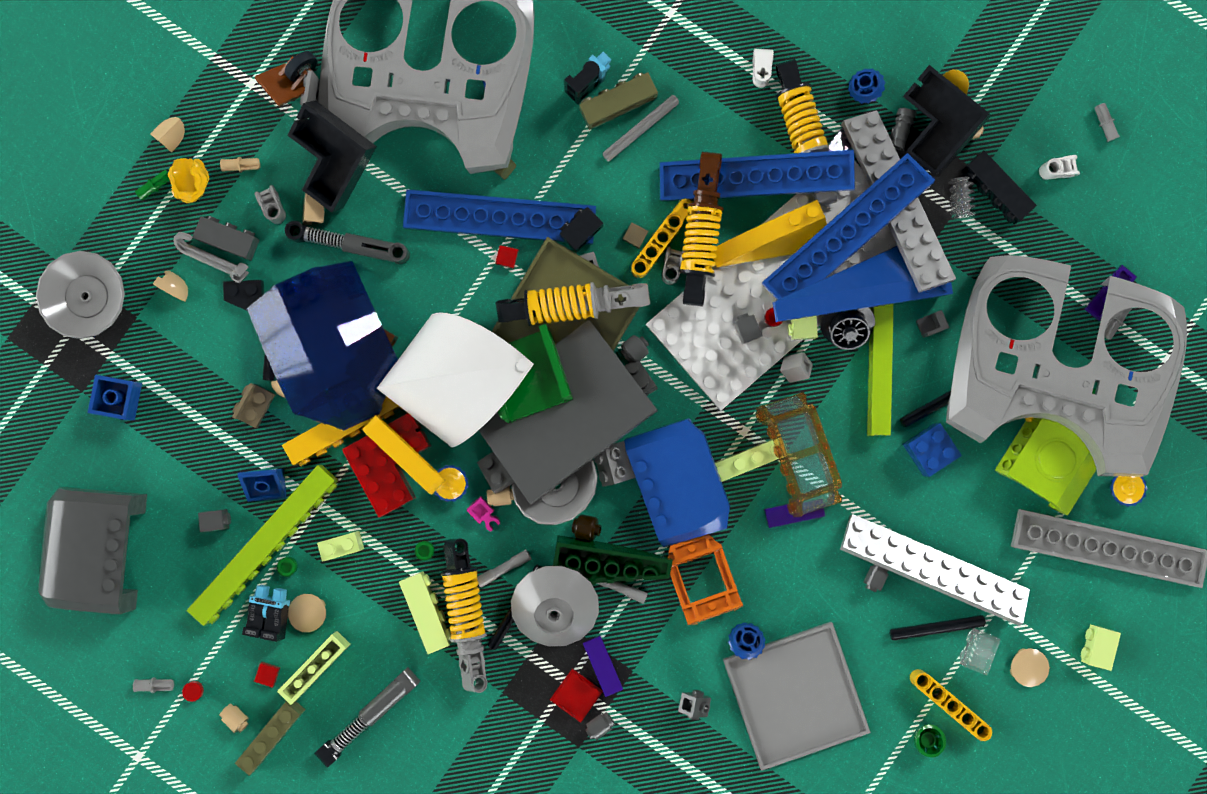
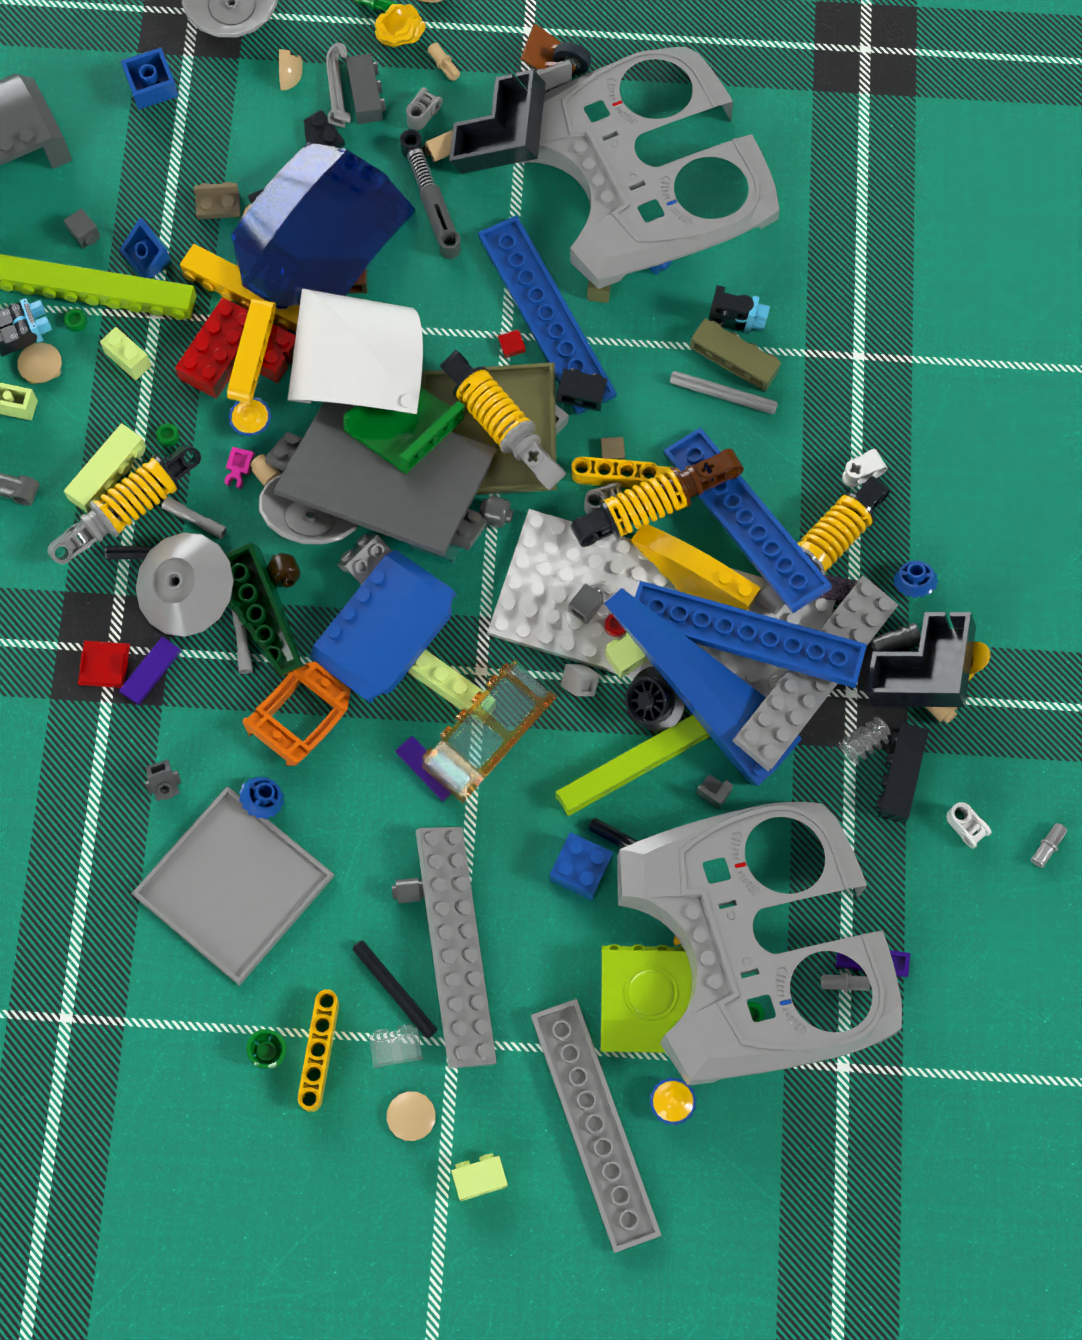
camera: 60 degrees right, 15 degrees down
(599, 726) = (85, 701): dark grey brick -> none

